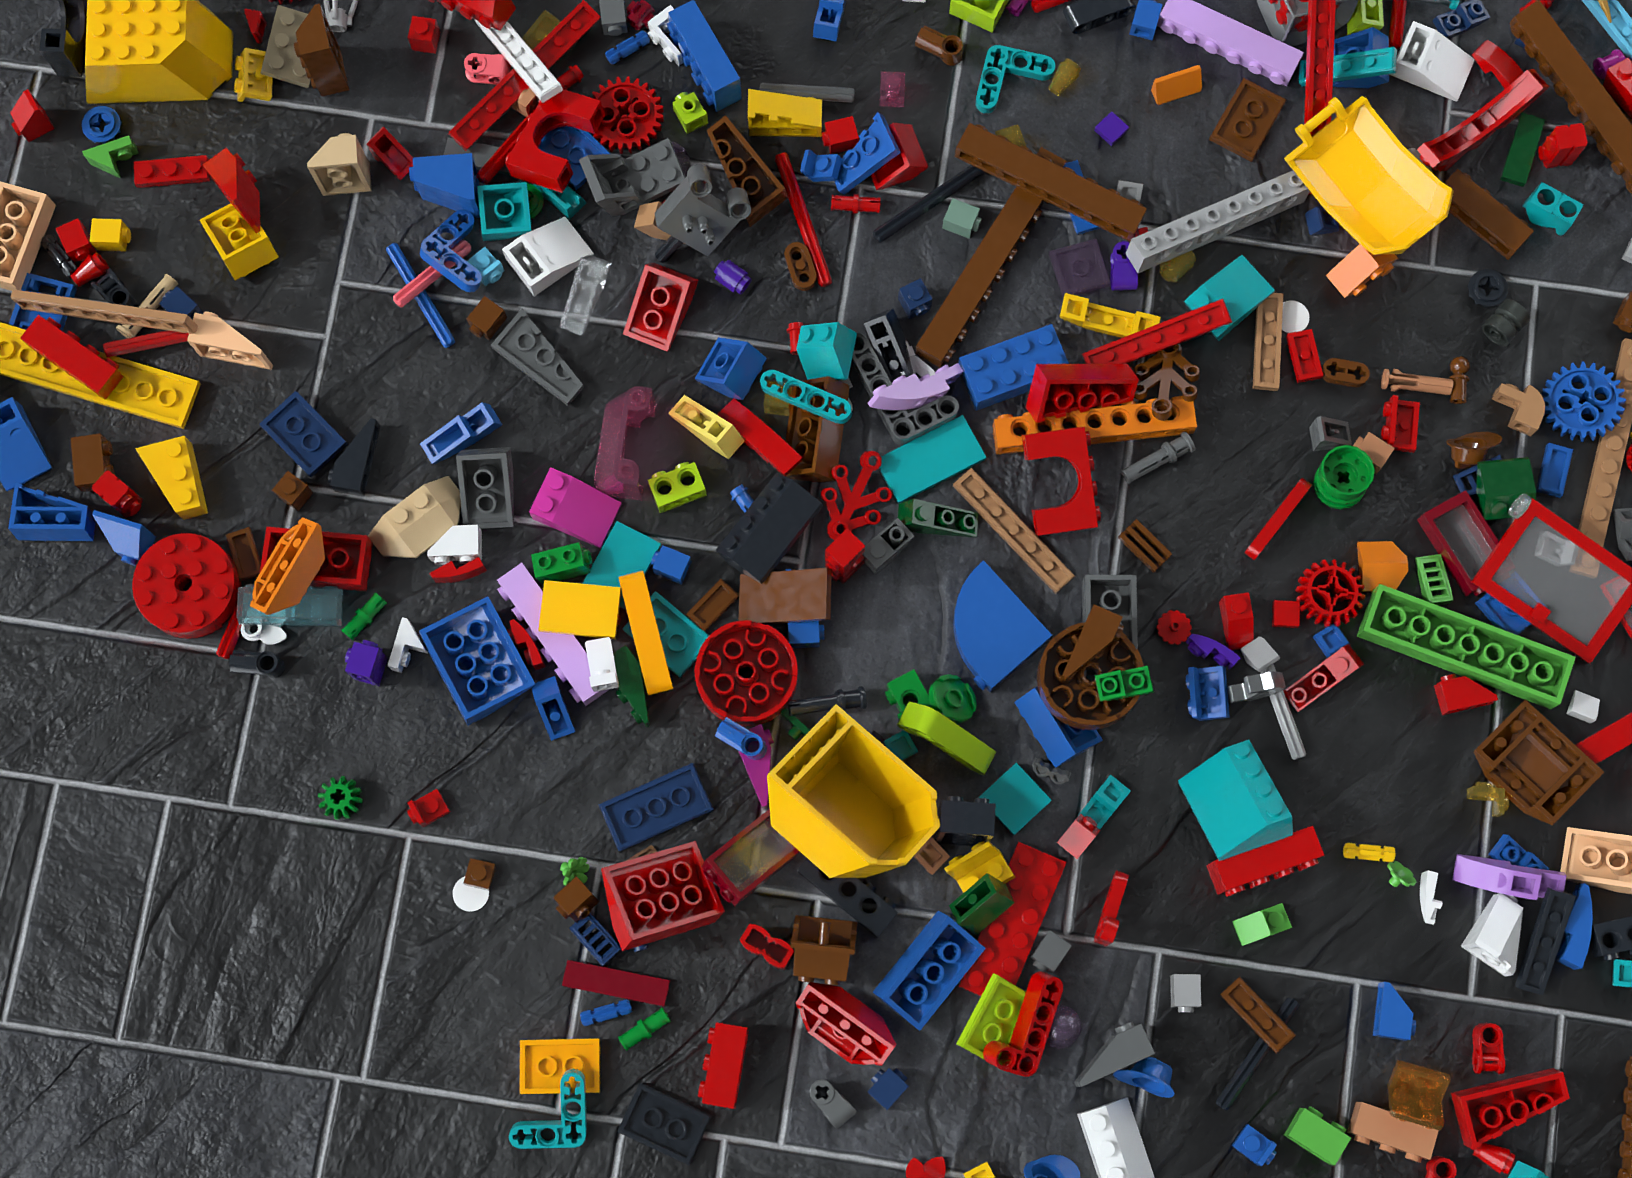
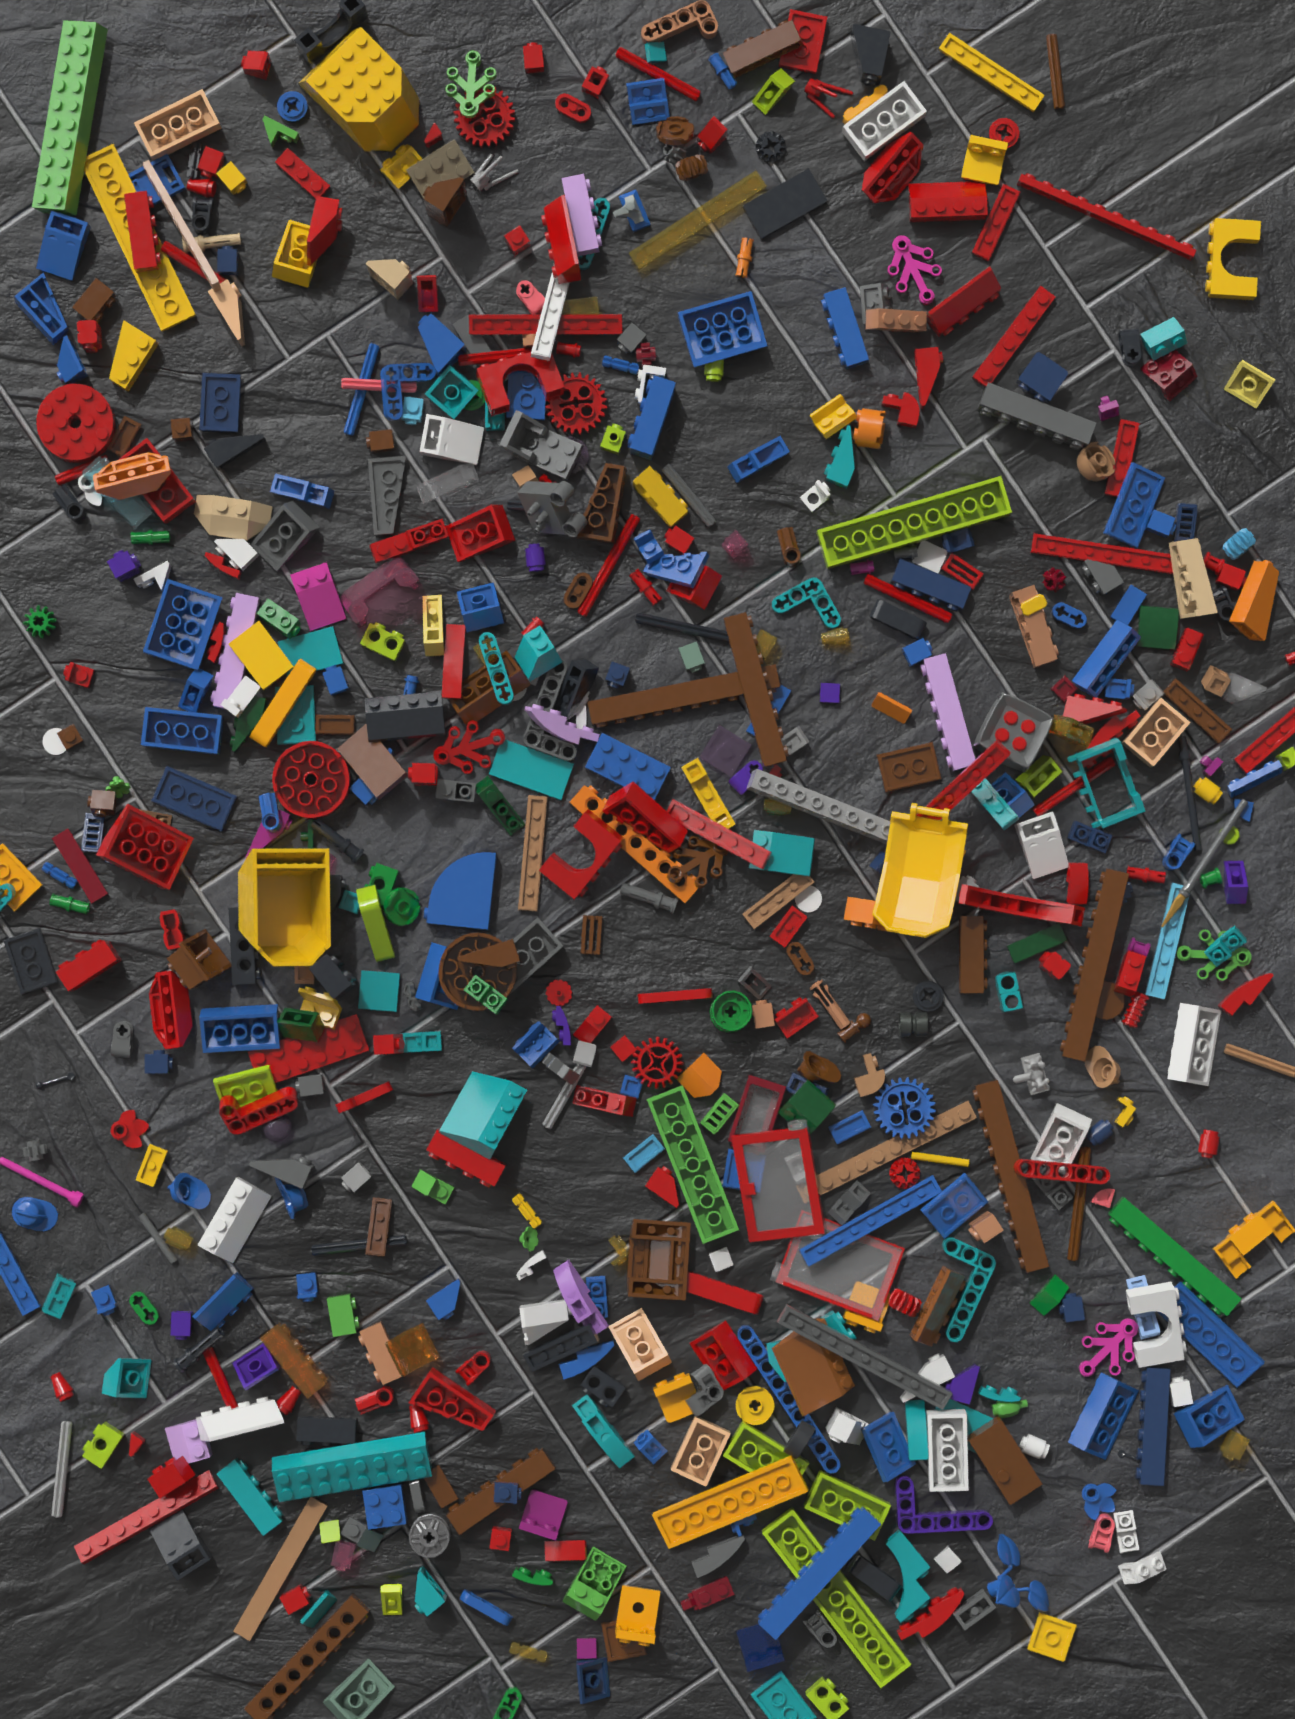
camera: 40 degrees right, 10 degrees up
(579, 755) = (182, 731): none -> blue brick
(605, 376) = (409, 541): none -> red slope
(749, 860) = (208, 876): piece -> none
(1409, 687) = (643, 1153): none -> dark azure tile

